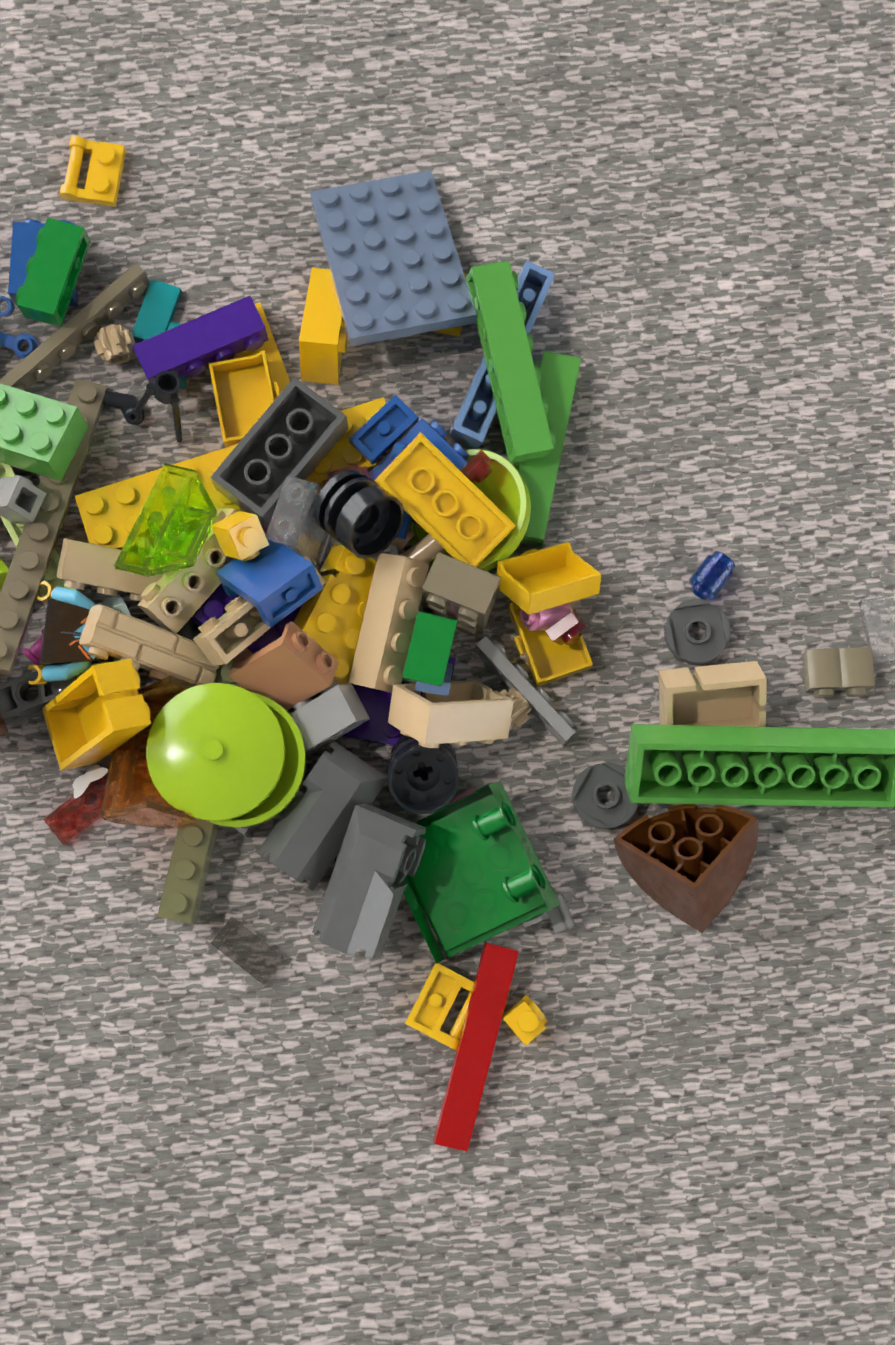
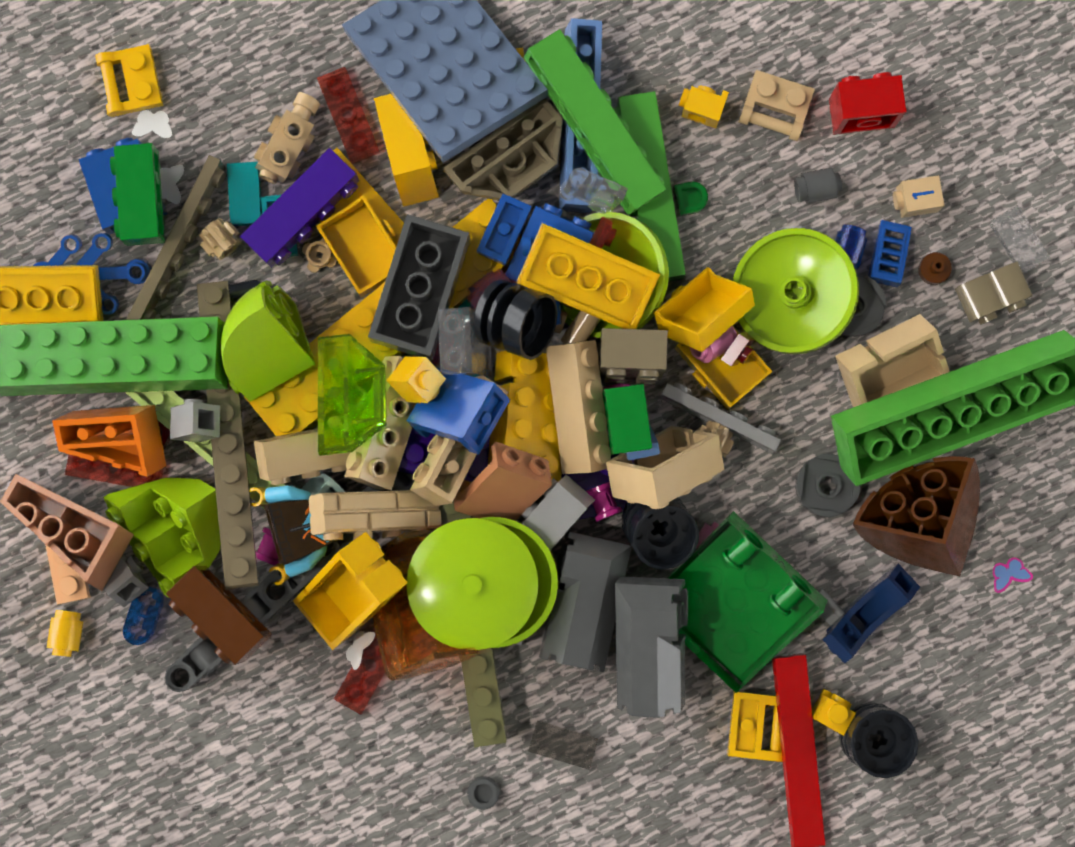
camera: 15 degrees left, 5 degrees up
(88, 280) = (169, 178): none -> white sticker
(102, 219) = (152, 122): none -> white sticker
(112, 447) = (263, 341): none -> lime brick
(151, 967) = (483, 792): none -> dark grey tile
(166, 390) = (290, 268): black plant -> none
(197, 388) = (315, 263): none -> tan plate
(213, 280) = (285, 143): none -> tan brick
(285, 292) = (354, 130): none -> clear red tile
(378, 727) = (604, 502): none -> dark pink bush
(419, 366) = (511, 155): none -> dark tan wedge
(489, 429) = (593, 189): none -> clear plate
(559, 1084) = (893, 751): none -> black wheel
(578, 473) = (690, 197): none -> green tile
(598, 934) = (869, 612): none -> dark blue arch
(623, 390) = (703, 105): none -> yellow brick
(648, 596) = (800, 290): none -> lime dish
(699, 409) = (778, 96): none -> tan plate
(704, 505) = (817, 185): none -> dark grey brick
(738, 617) = (883, 277): none -> blue slope
(750, 950) = (1011, 571): none -> medium blue sticker
(781, 444) = (867, 103): none -> red brick
(784, 631) = (928, 271): none -> reddish brown tile
(799, 552) = (918, 196): none -> tan brick

